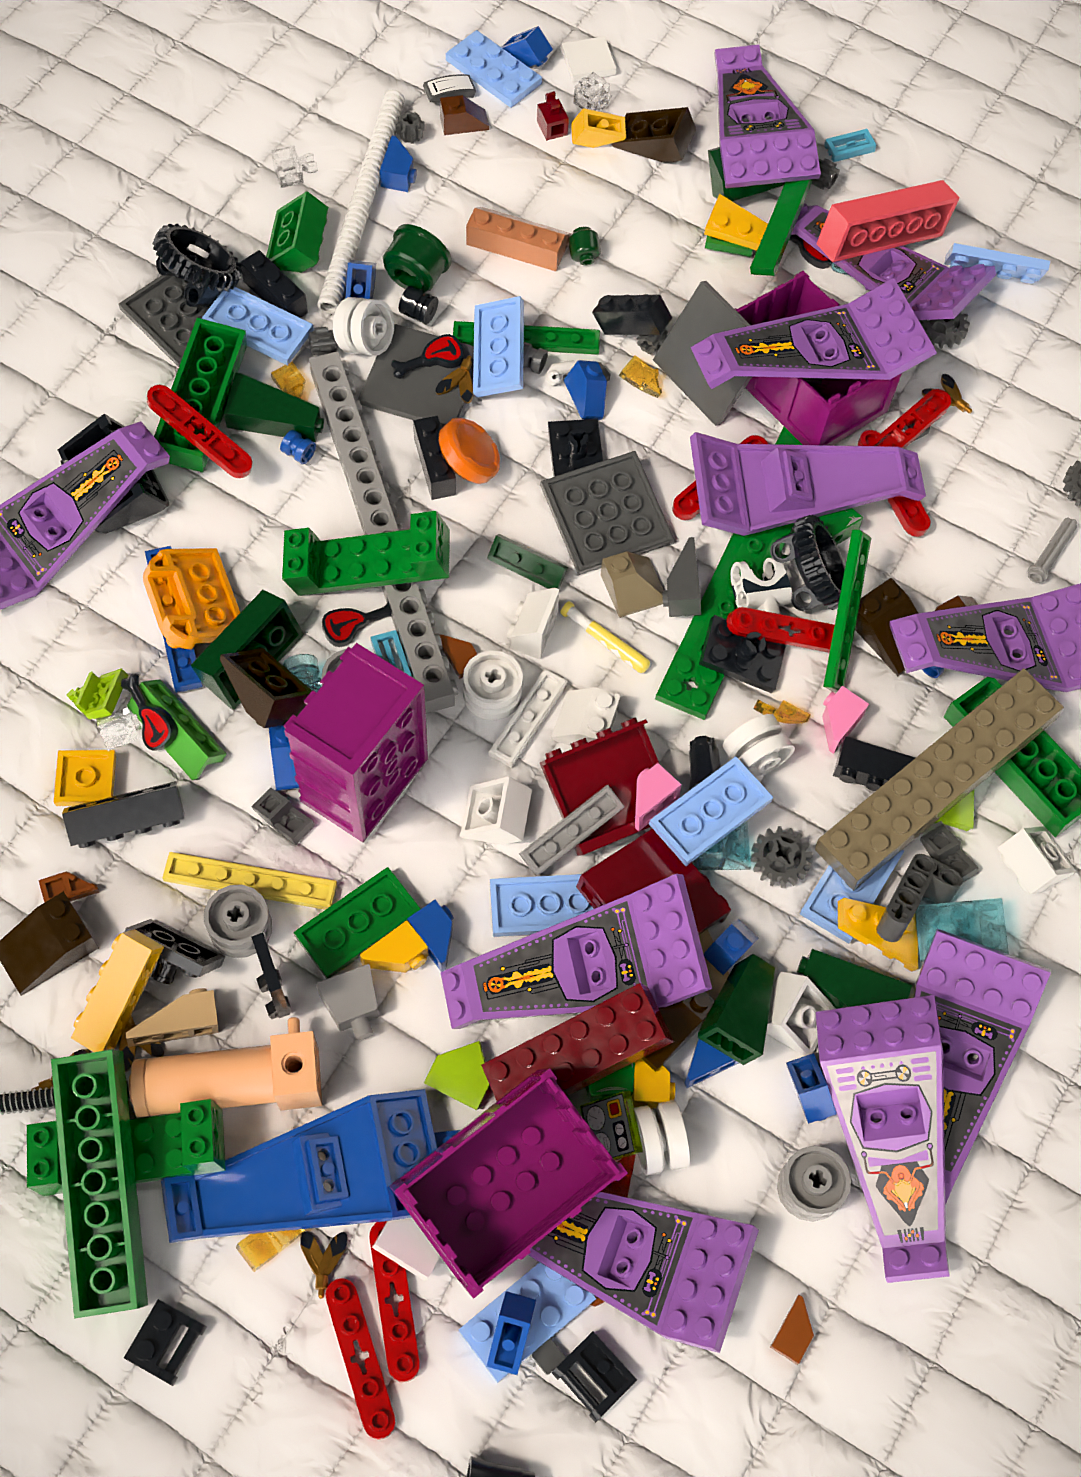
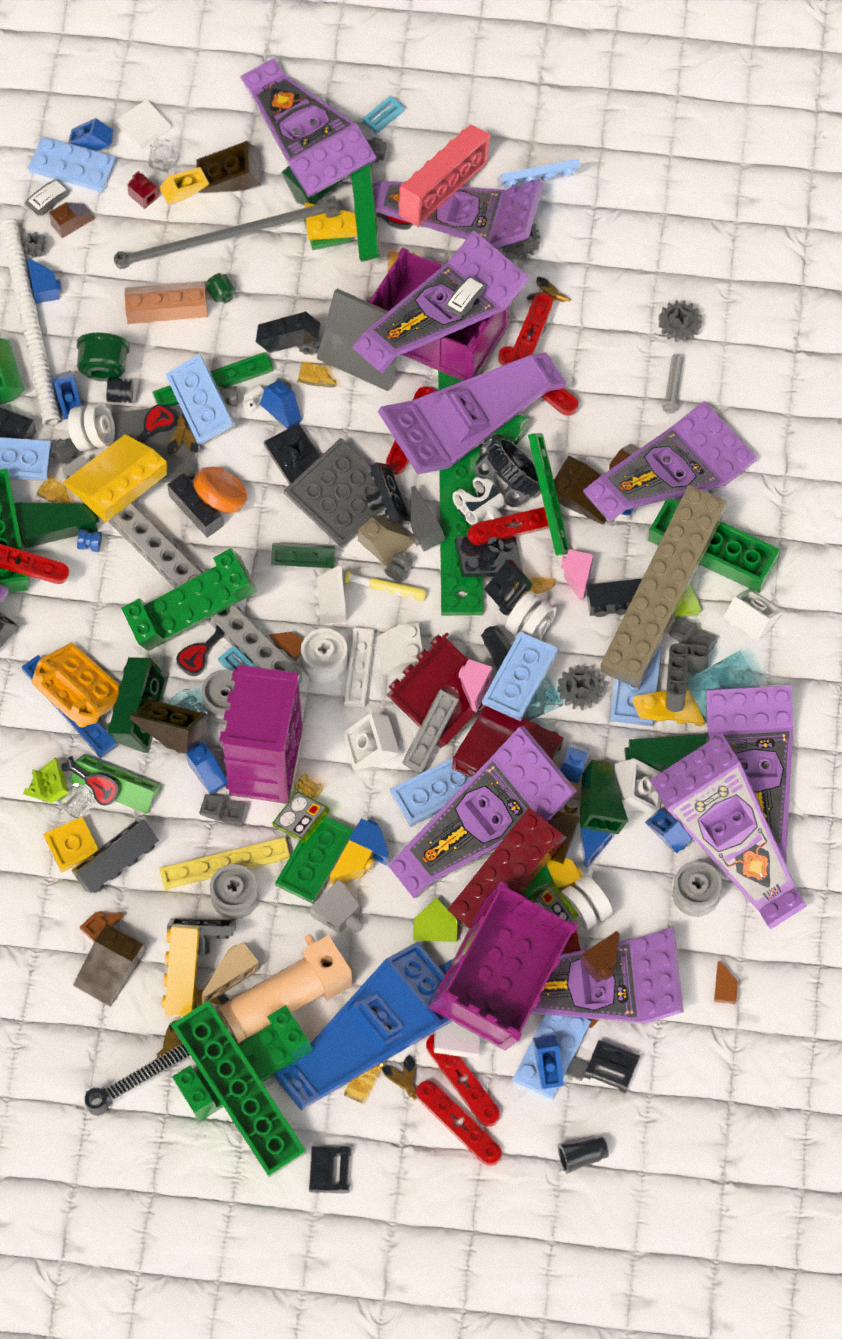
camera: 20 degrees left, 0 degrees up
(271, 979) = (282, 914): black tile -> none
(362, 390) = (117, 476): none -> yellow slope
(366, 865) = (300, 816): none -> tile
(395, 833) = (308, 786): none -> clear yellow bush
(630, 622) = (398, 567): none -> dark grey wheel
(646, 1223) = (601, 958): none -> reddish brown slope
(657, 533) = (388, 494): none -> black plate
(743, 206) = (328, 206): none -> dark grey hinge
(746, 692) = (504, 582): none -> black plate
(845, 344) = (464, 296): none -> slope

